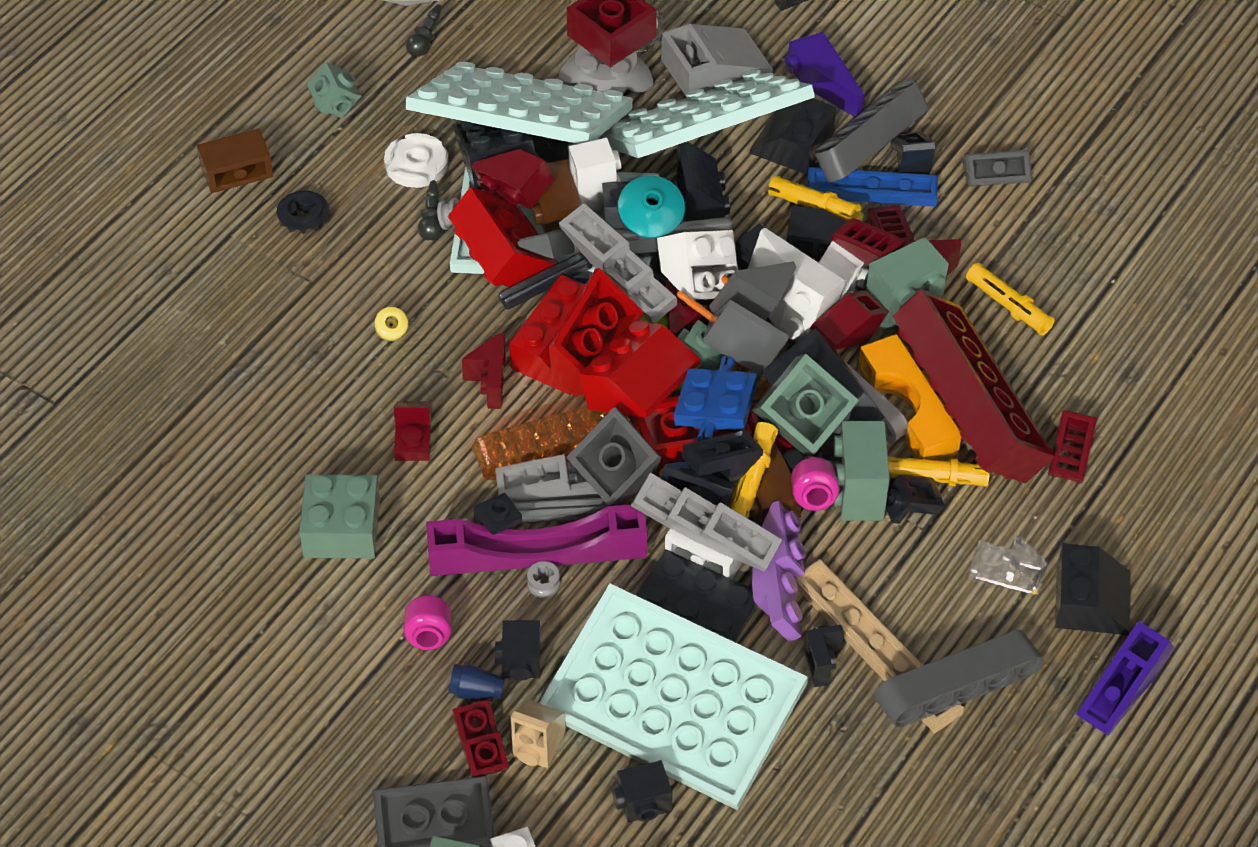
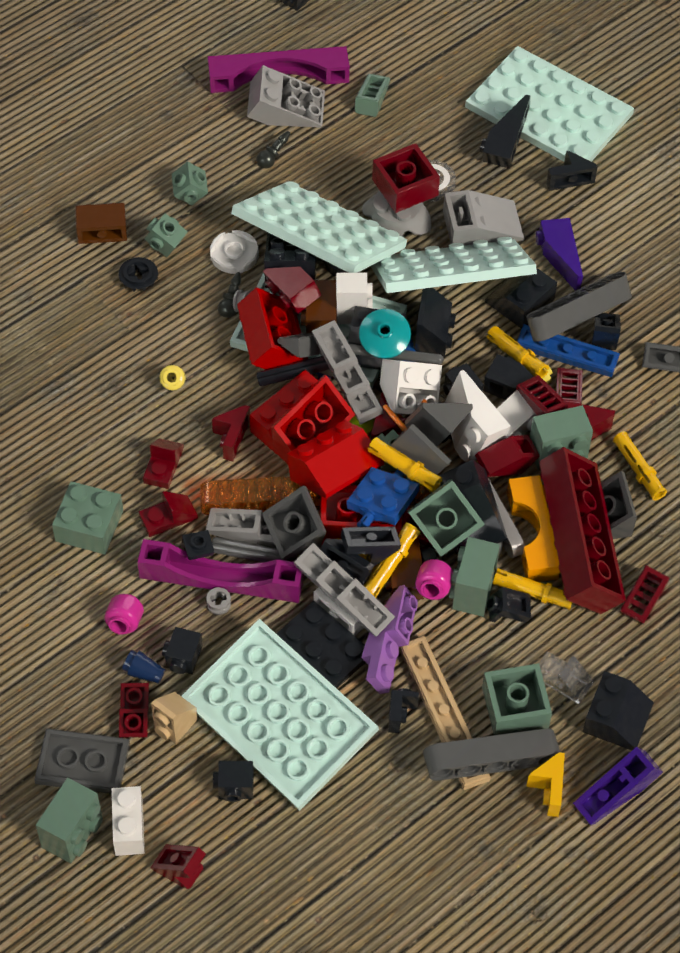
camera: 15 degrees right, 5 degrees up
(323, 156) = (165, 234): none -> sand green brick
(441, 490) = (171, 513): none -> dark red slope
(744, 358) = (414, 470): none -> yellow pin
(965, 604) = (516, 699): none -> sand green brick
(1007, 346) = (619, 506): none -> dark grey slope
(1042, 691) = (550, 778): none -> yellow slope

